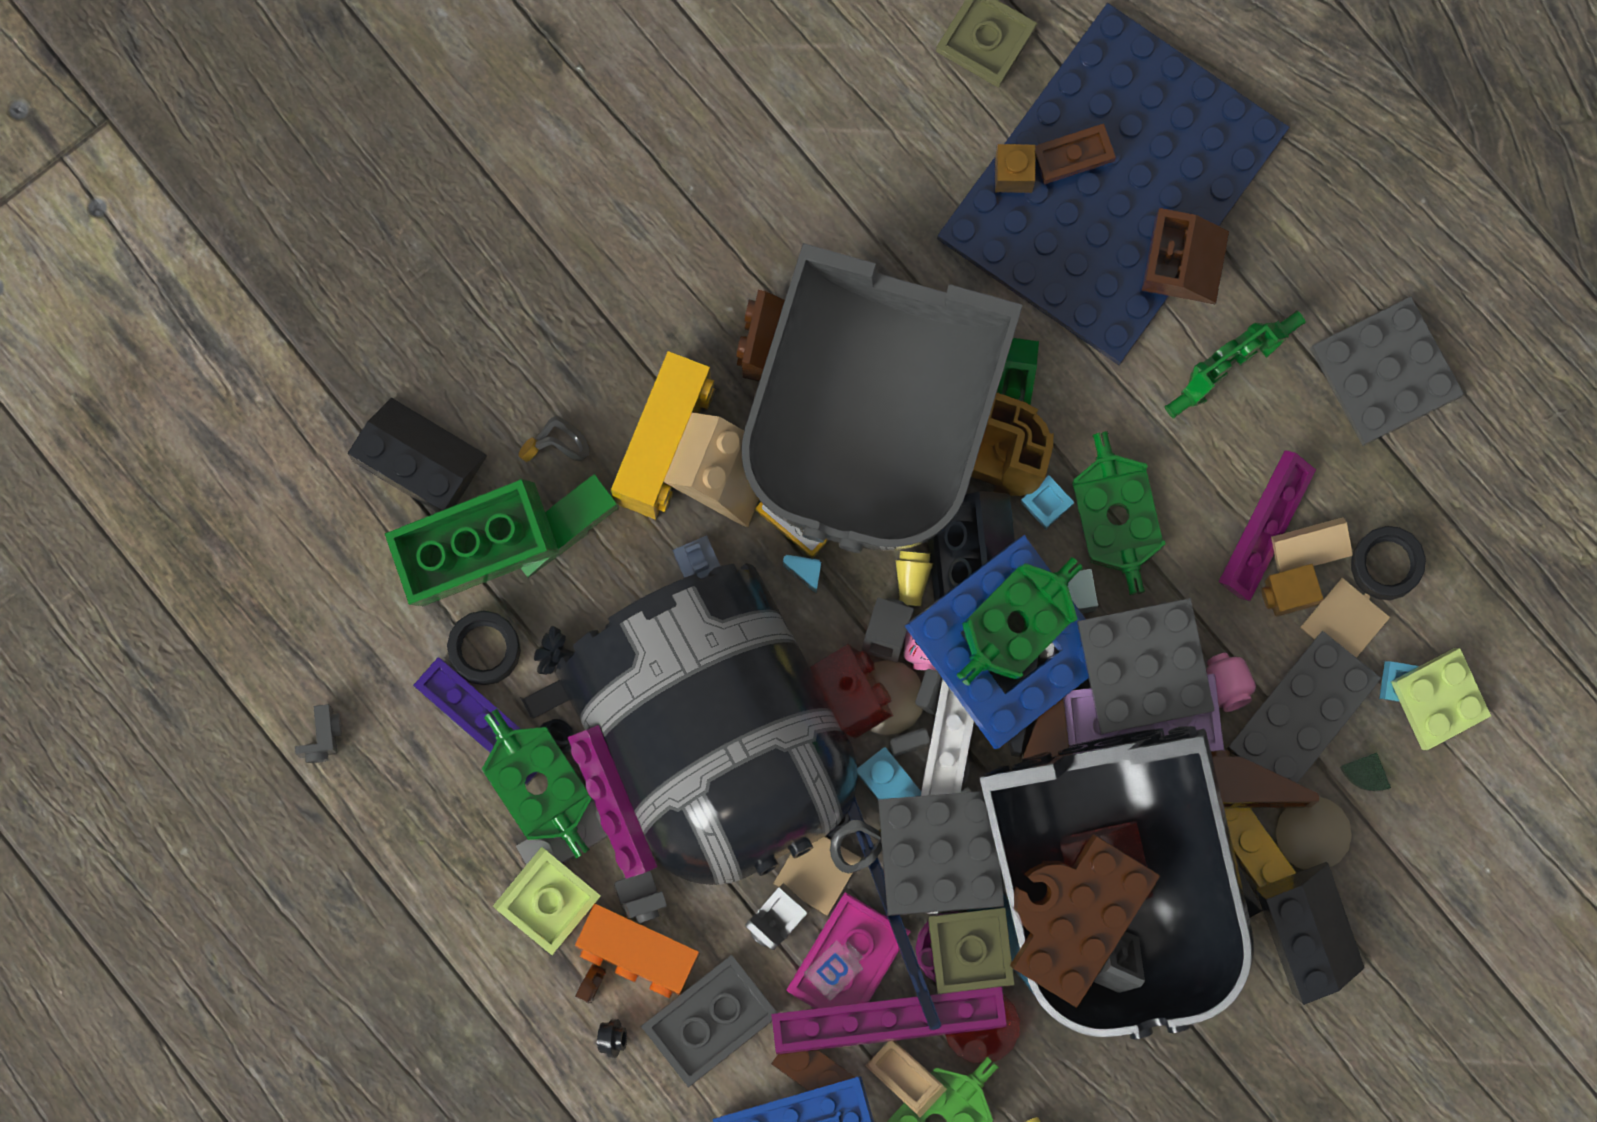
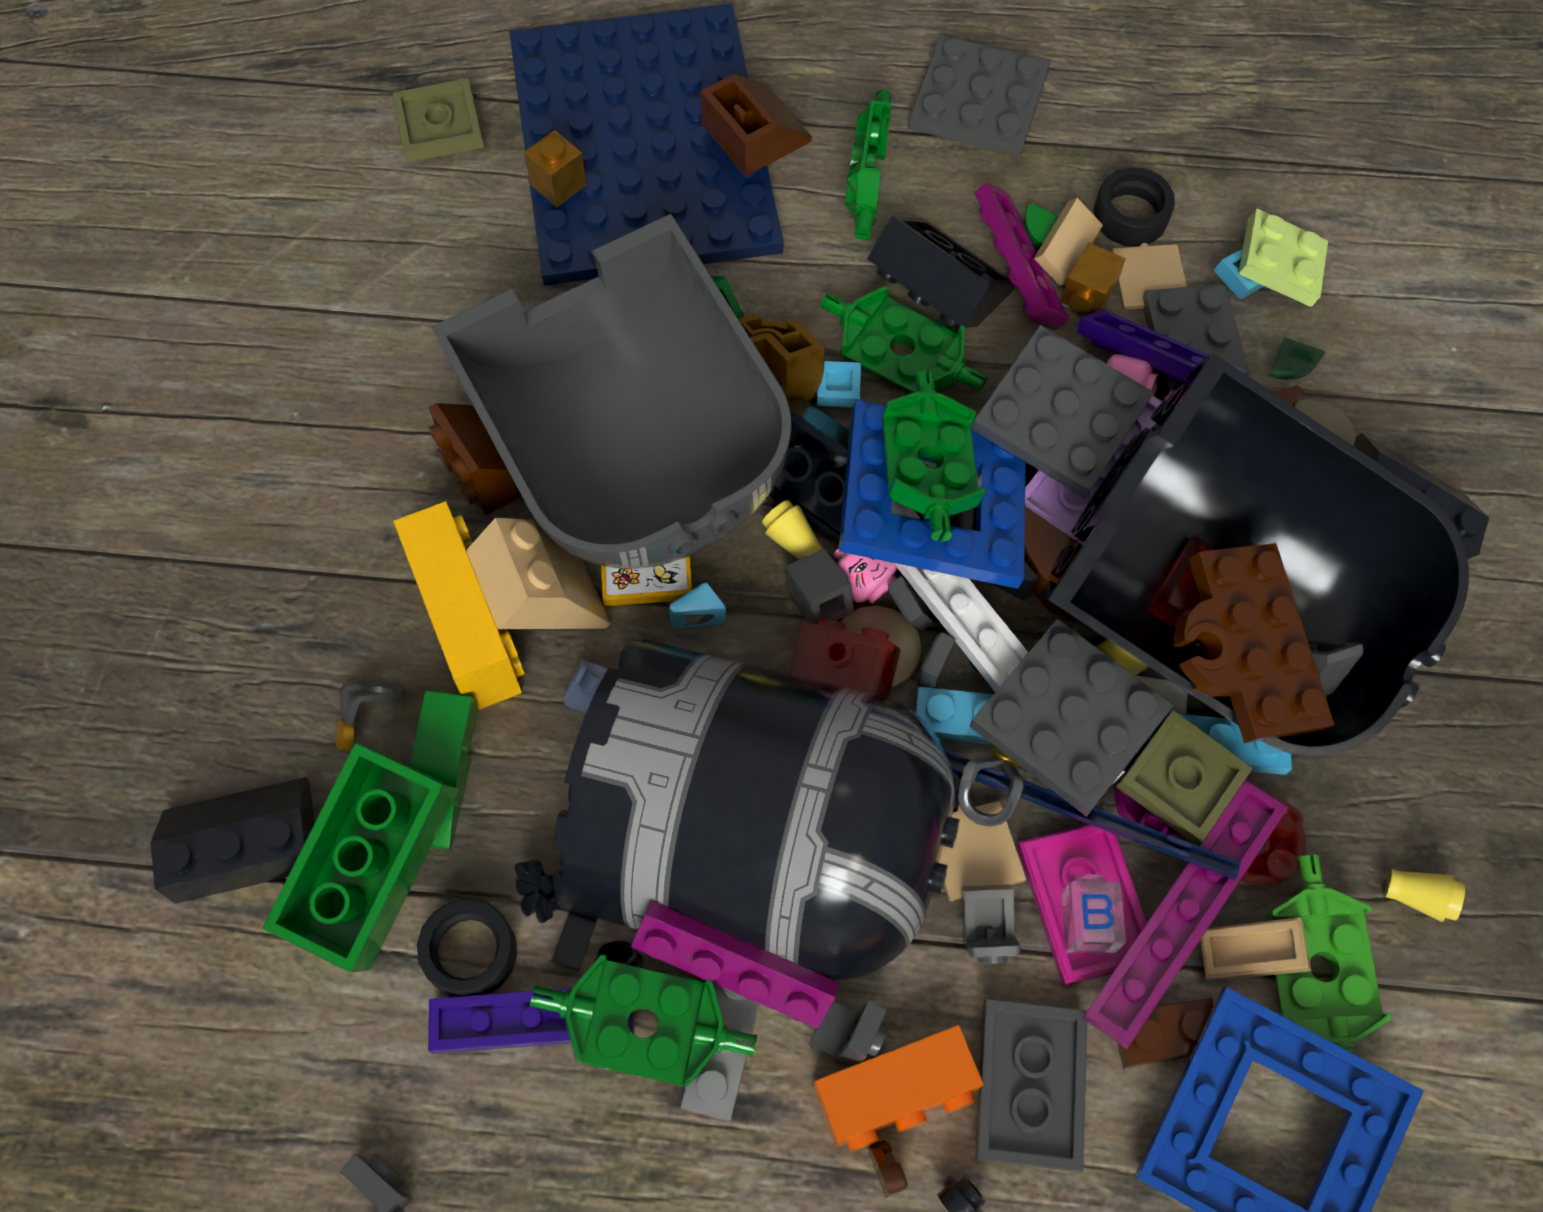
camera: 45 degrees left, 15 degrees down
(546, 901) = (764, 1129): yellowish green plate -> none
(1074, 153) = (595, 124): reddish brown plate -> none
(1201, 485) = (939, 271): none -> black slope
(1268, 685) = (1134, 340): none -> dark purple plate
(1310, 512) = (1038, 224): none -> green tile

